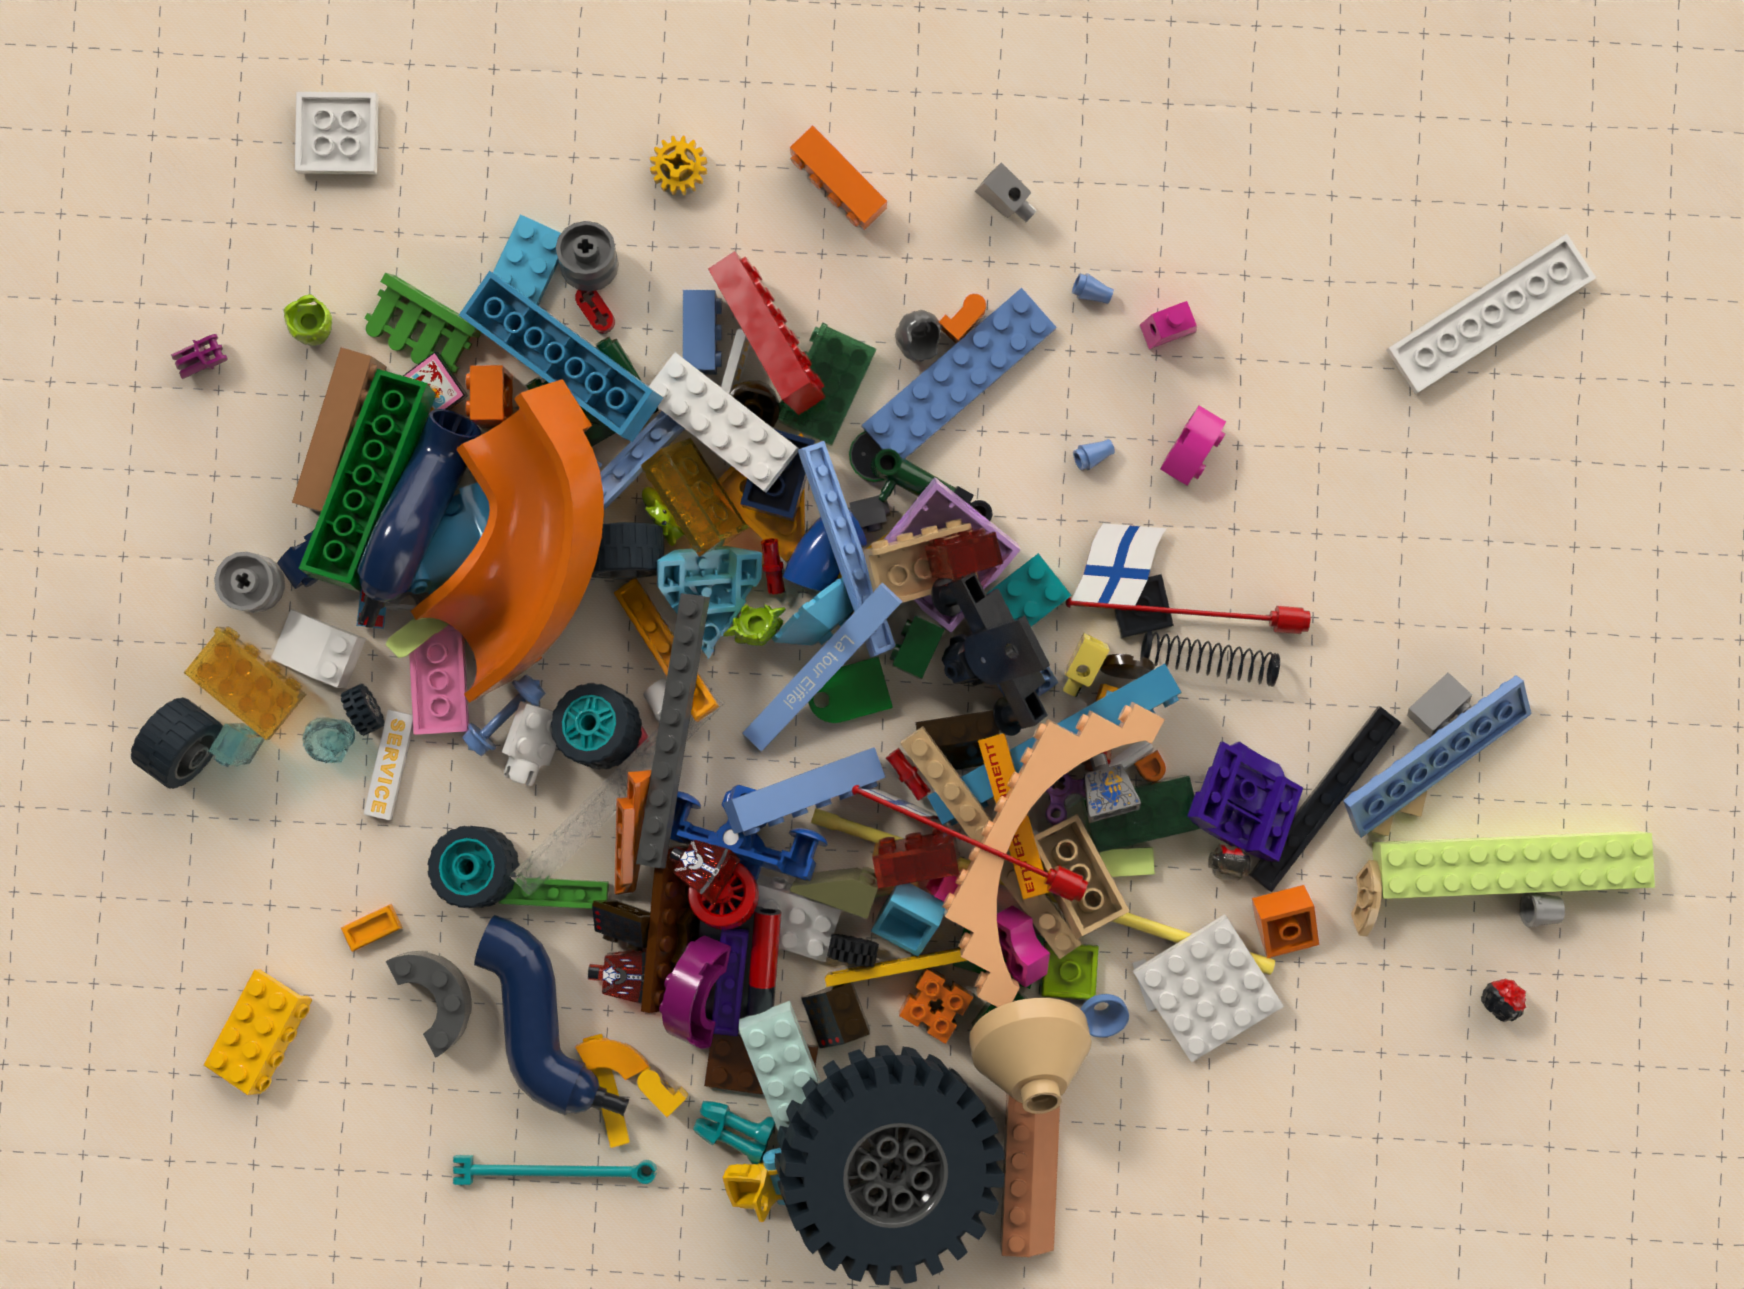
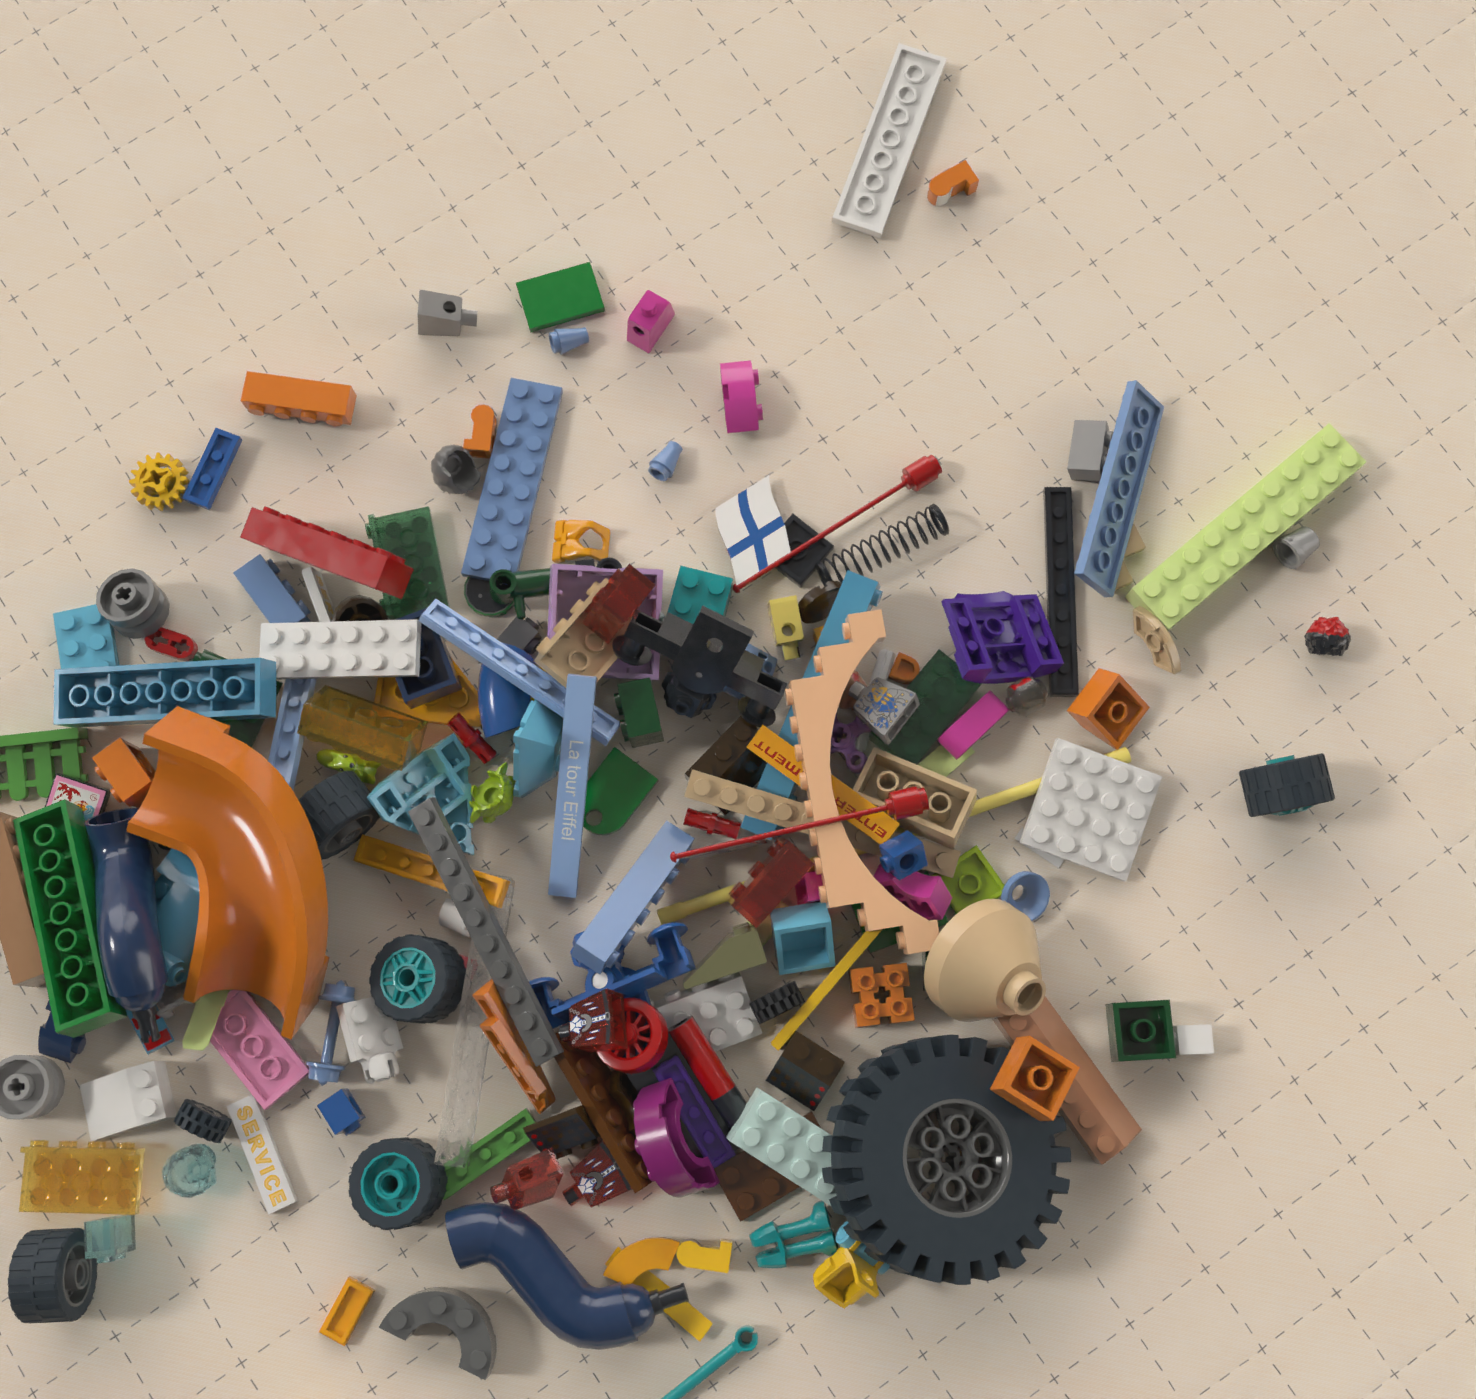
camera: 40 degrees left, 10 degrees down
(469, 781) = (342, 1112): none -> blue brick
(570, 941) = (529, 1181): none -> clear red torso
(728, 185) = (212, 468): none -> blue plate
(962, 467) = (567, 540): none -> light orange piece
(998, 1164) = (1035, 1078): none -> orange brick
(1032, 918) = (903, 855): none -> blue brick
(1110, 1181) = (1140, 1030): none -> dark green brick
(1113, 246) = (560, 297): none -> green tile
(1143, 1216) = (1193, 1039): none -> white brick
(1169, 854) = (973, 724): none -> dark pink beam
(1373, 1090) = (1286, 785): none -> black wheel
(1511, 391) = (952, 182): none -> orange leg

